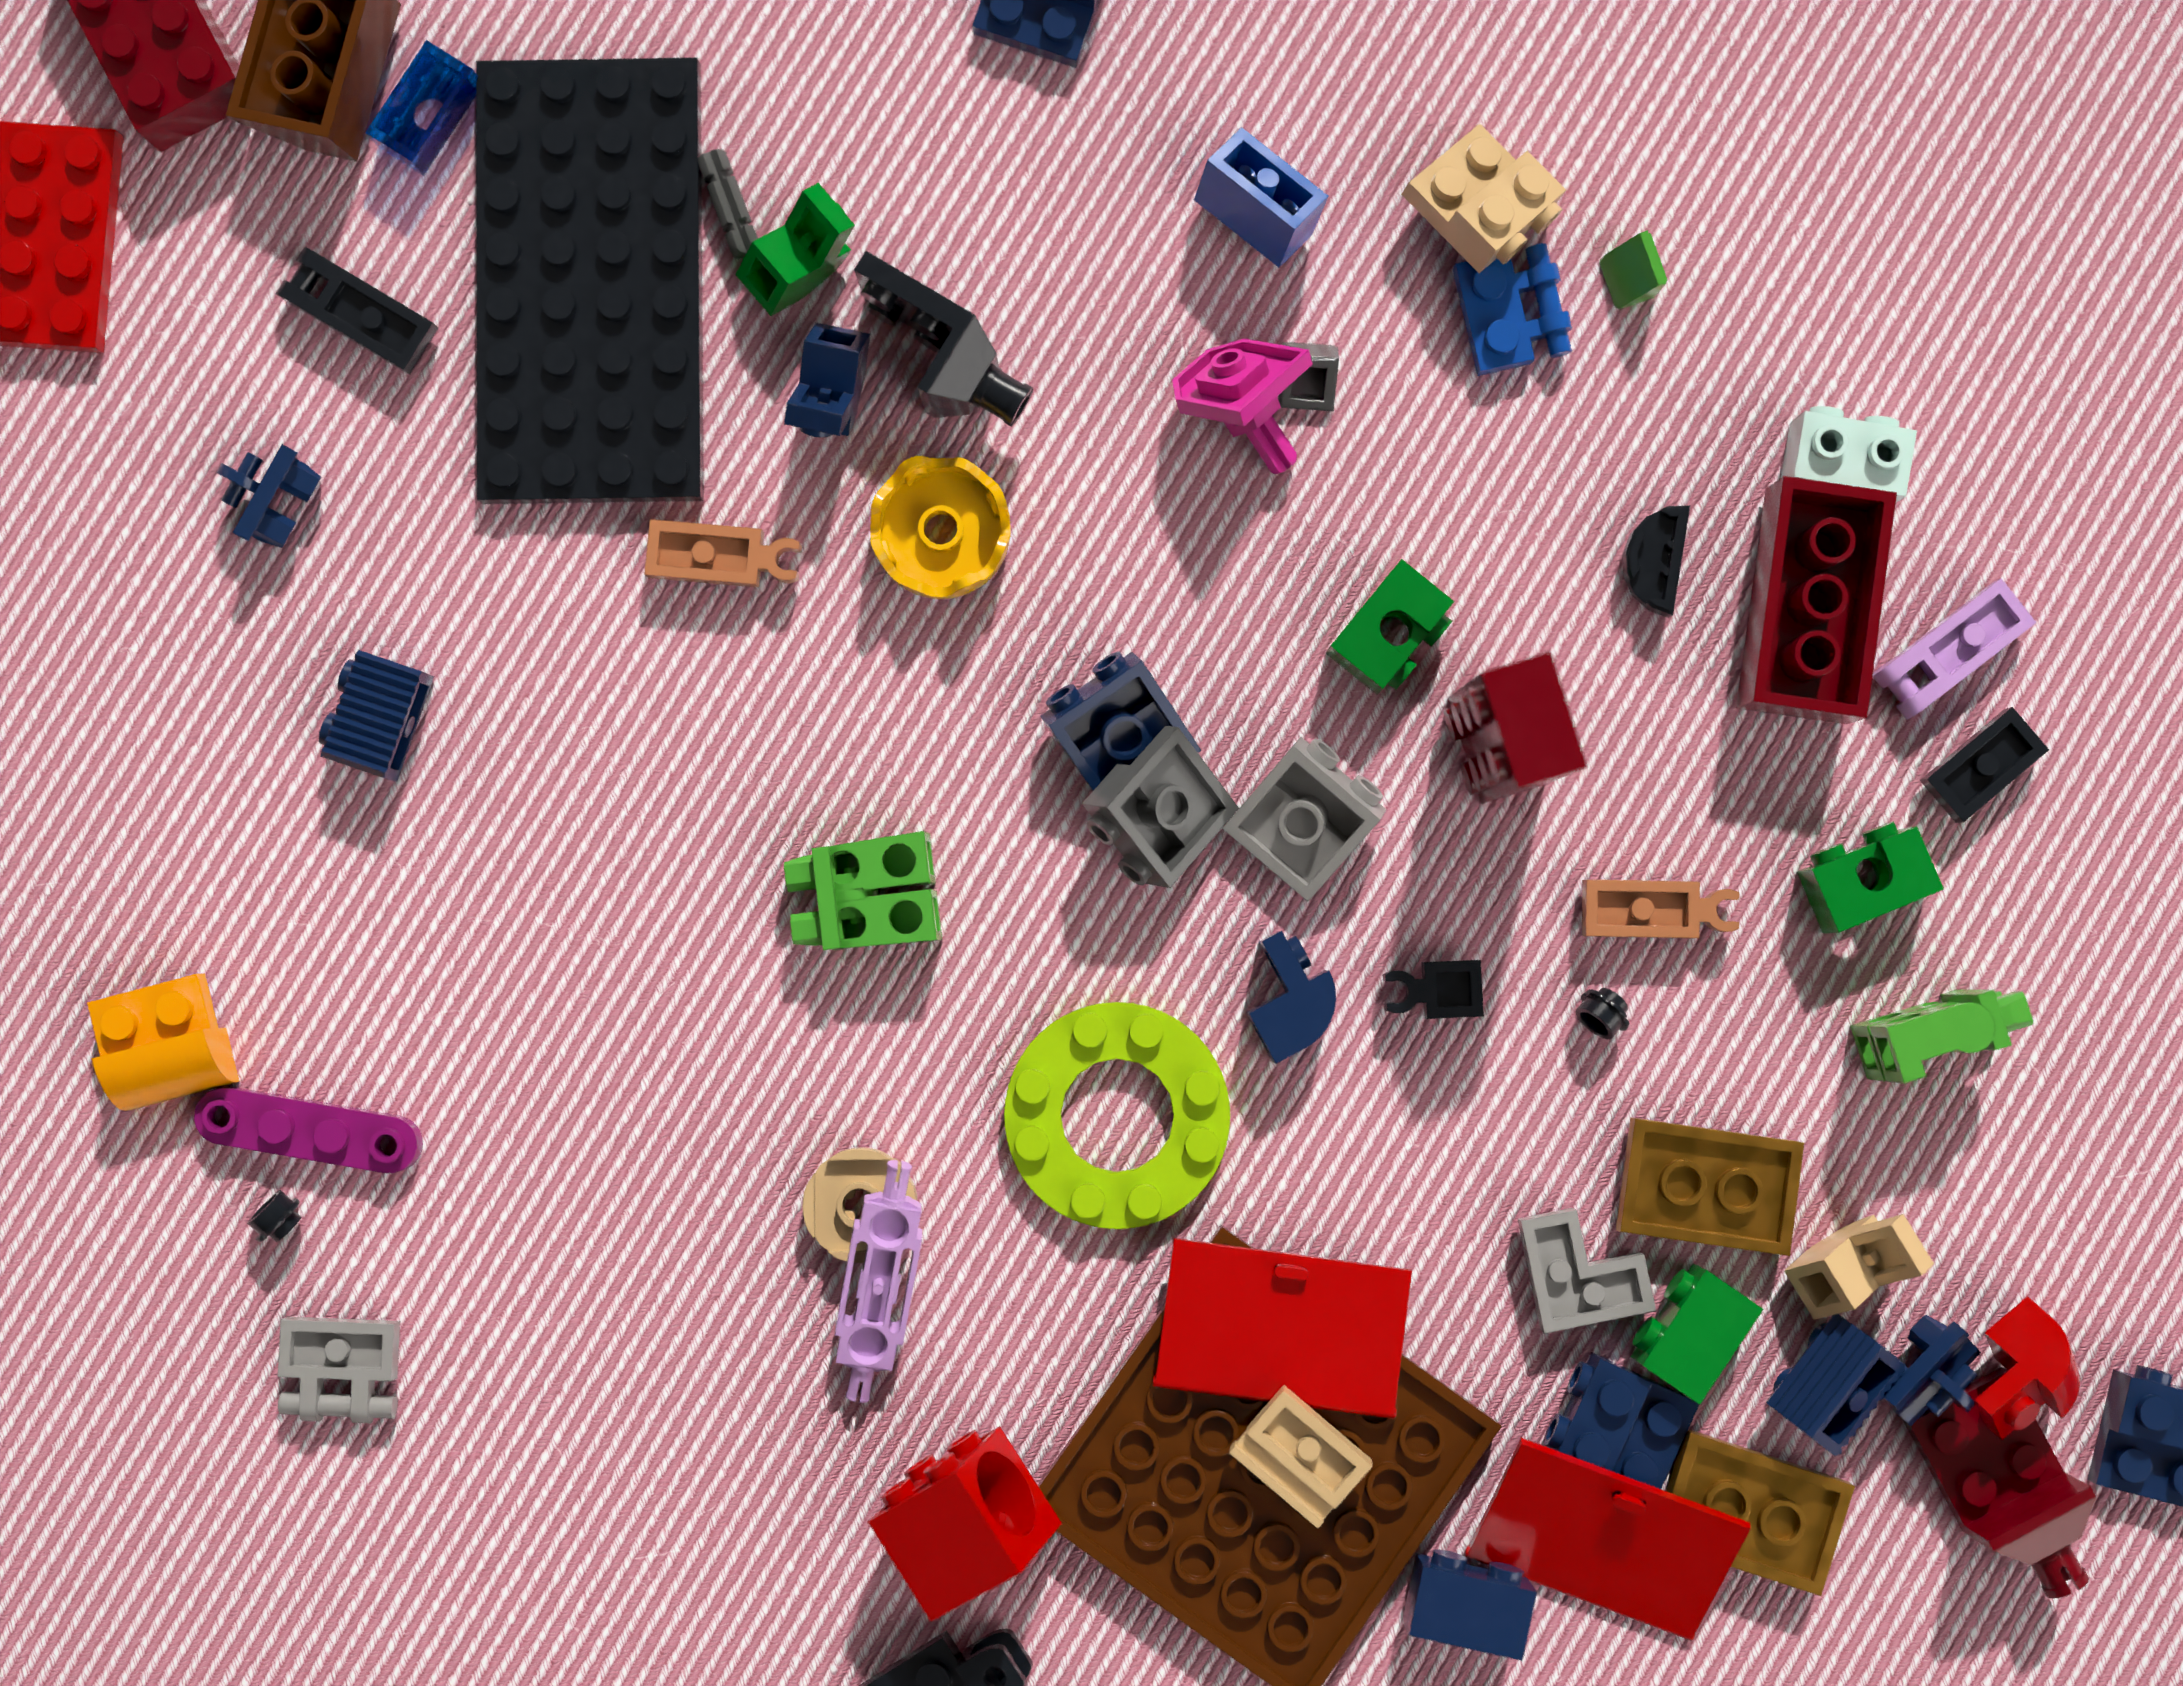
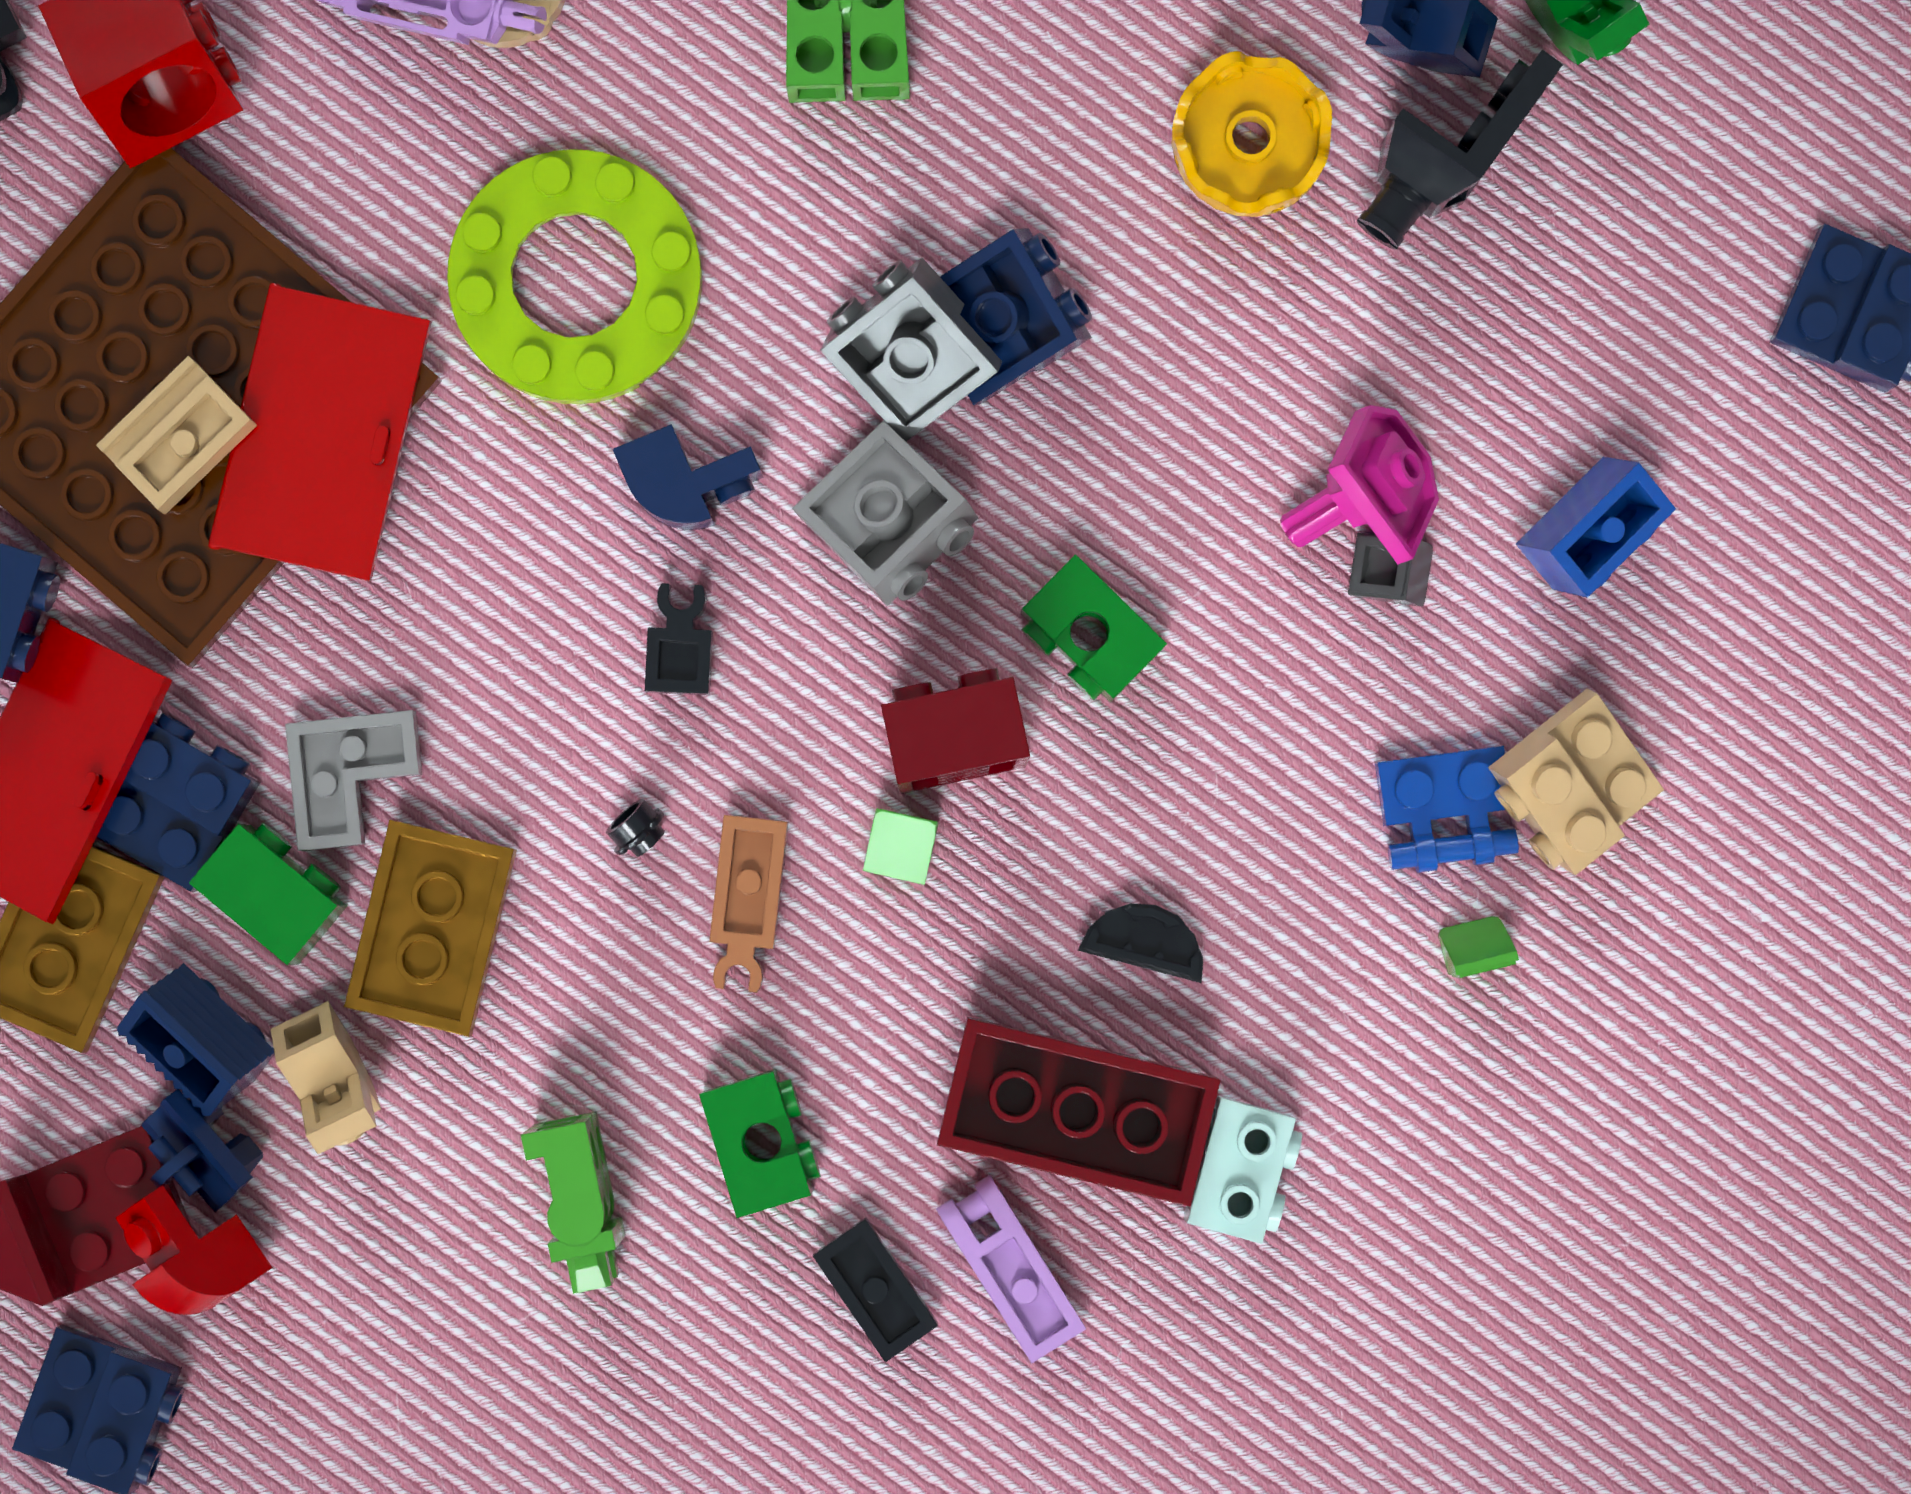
camera: 90 degrees right, 0 degrees up
(1597, 784) = (900, 846): none -> slope

